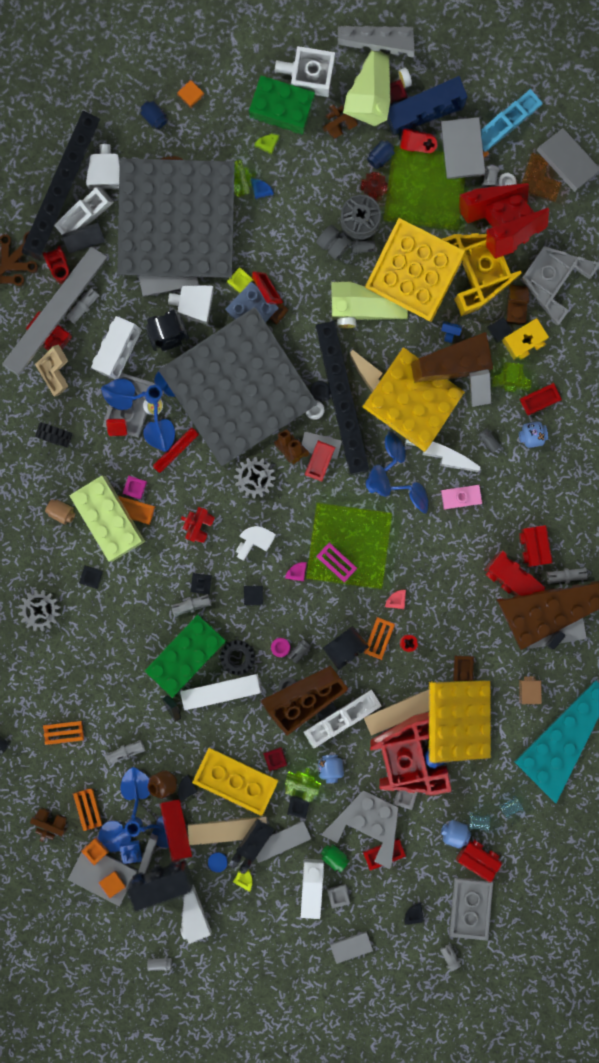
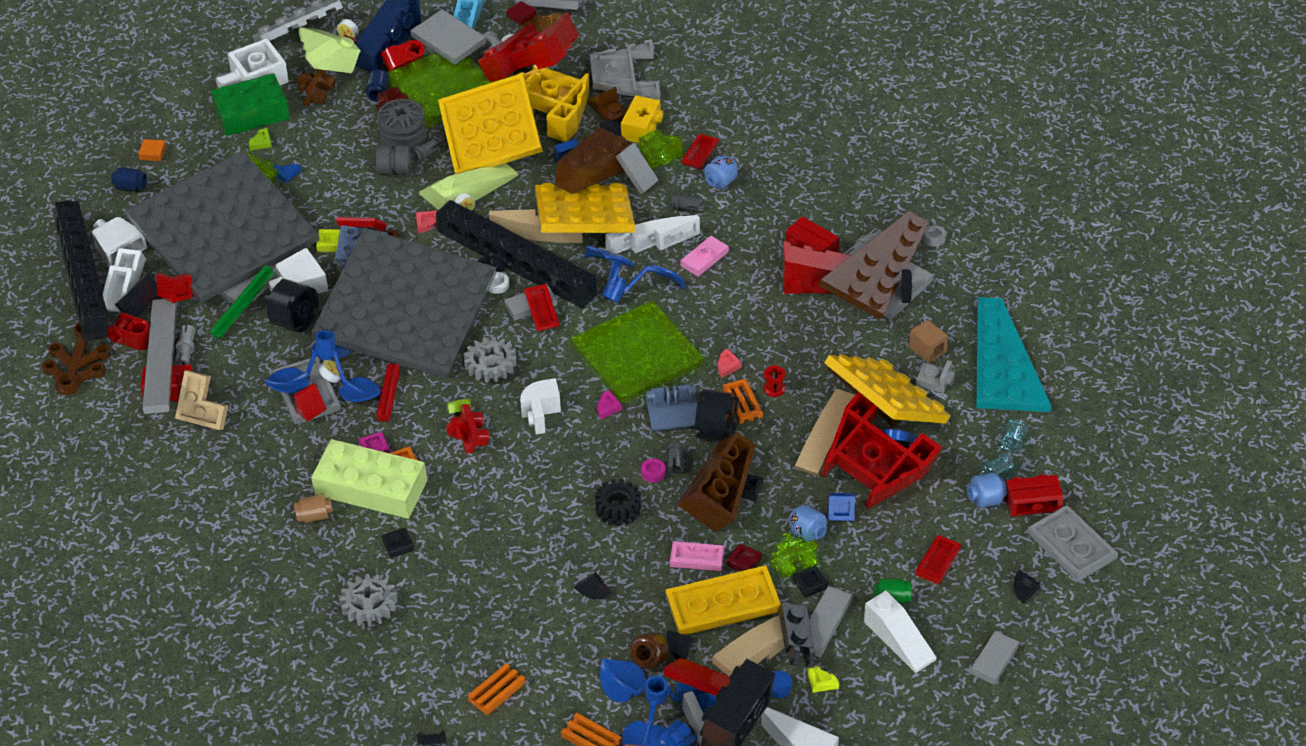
camera: 40 degrees left, 40 degrees down
(53, 435) = (237, 443): black tyre -> none
(108, 252) = (174, 288): none -> red panel
(116, 348) = (250, 350): white brick -> none
(124, 752) = (581, 657): light grey pin -> none
(141, 298) = (242, 302): none -> green axle
(185, 655) = (562, 532): green brick -> none
(191, 605) = (527, 495): light grey pin -> none
(201, 583) = (519, 473): black tile -> none
(206, 499) = (455, 406): none -> lime tile
(221, 692) = (629, 538): white slope -> none
(249, 736) = (697, 556): none -> bright pink plate
(253, 595) = (582, 448): black tile -> none
(290, 447) = (506, 316): reddish brown hips -> none
(314, 314) = (425, 220): none -> coral tile
(324, 551) = (637, 364): dark pink tile -> none
(332, 610) = (672, 408): none -> sand blue hinge
(338, 896) = (933, 625): light grey tile -> none
(342, 719) = (775, 481): white slope -> none
(361, 773) = (841, 506): none -> tile
(372, 818) = (895, 535): light grey wing -> none
(405, 799) = (906, 501): light grey tile -> none
(450, 957) = (1099, 592): light grey pin -> none
(509, 720) = (935, 377): none -> light grey bracket
(532, 164) = (521, 13): none -> dark red tile

